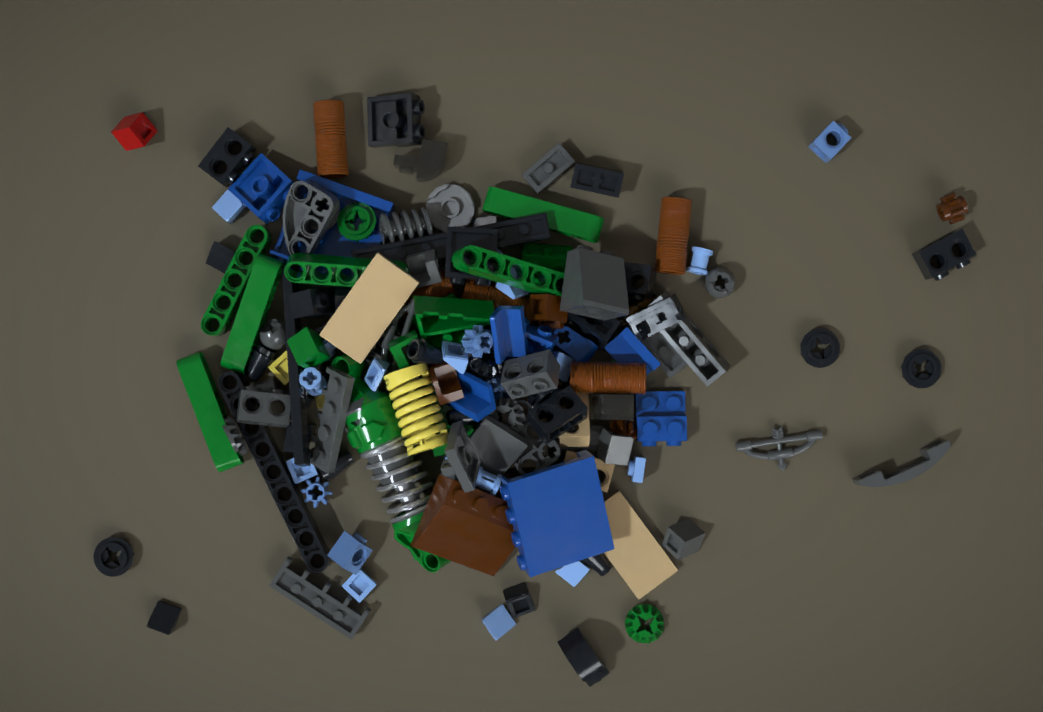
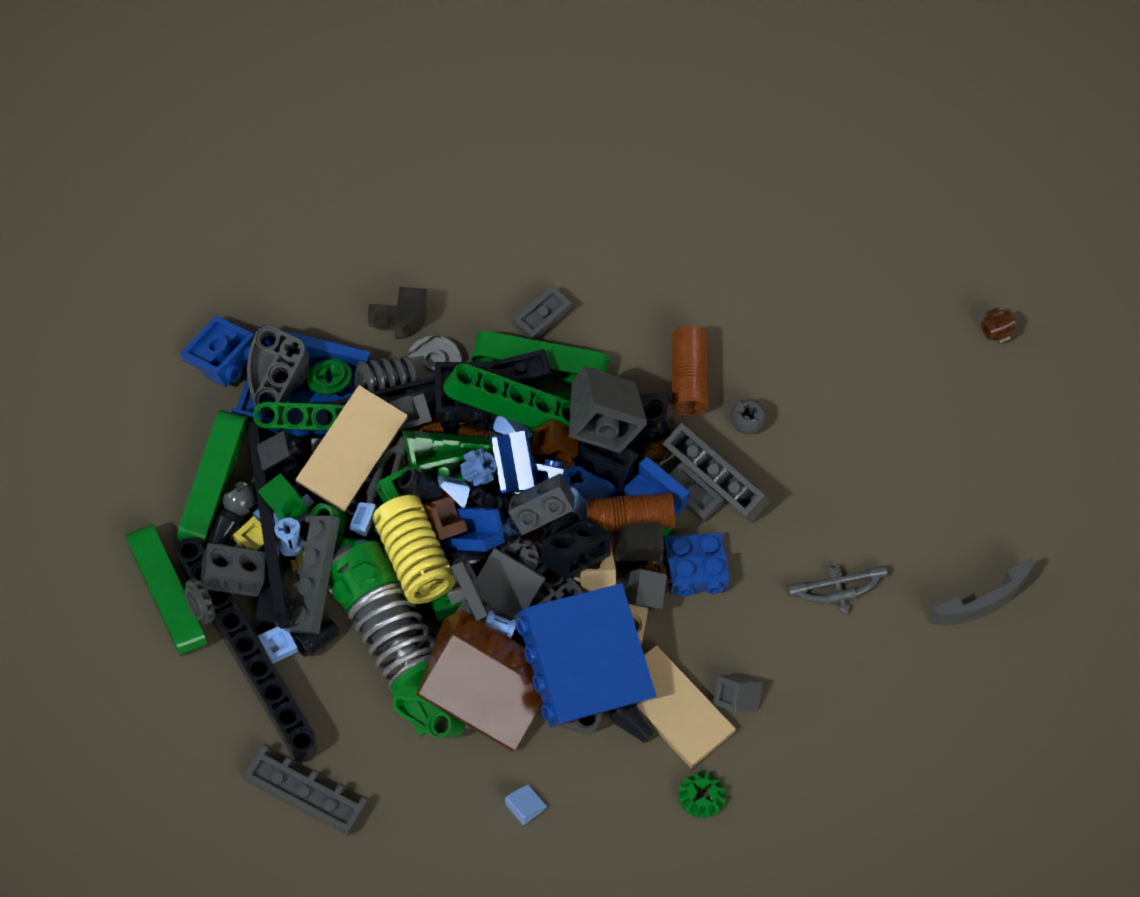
camera: 10 degrees left, 25 degrees down
(102, 554) = (53, 747): black gear -> none
(134, 131) = (70, 303): red panel -> none
(164, 618) = (115, 827): black slope -> none
(220, 257) = (174, 426): black slope -> none
(222, 153) = (172, 320): black brick -> none
(226, 288) = (190, 459): green beam -> none
(228, 206) = (181, 374): light blue slope -> none
(312, 496) = (305, 668): medium blue gear -> none
(330, 139) = (295, 293): dark orange piece -> none
(350, 552) = (341, 729): medium blue brick -> none
(359, 585) = (353, 770): light blue plate -> none
(395, 120) = (366, 274): black plate -> none
(519, 600) = (548, 779): black slope -> none
(573, 572) = (609, 737): light blue slope -> none
(583, 658) = (633, 831): black brick -> none
(597, 179) = (598, 317): black hinge -> none
(636, 469) = (674, 618): light blue plate -> none
(656, 317) = (679, 442): hinge -> none
(699, 261) = (722, 395): light blue bush -> none
(822, 148) = (850, 277): medium blue brick -> none
(829, 354) = (874, 468): black gear -> none
(932, 367) = (985, 482): black gear -> none
(943, 252) = (993, 368): black brick -> none

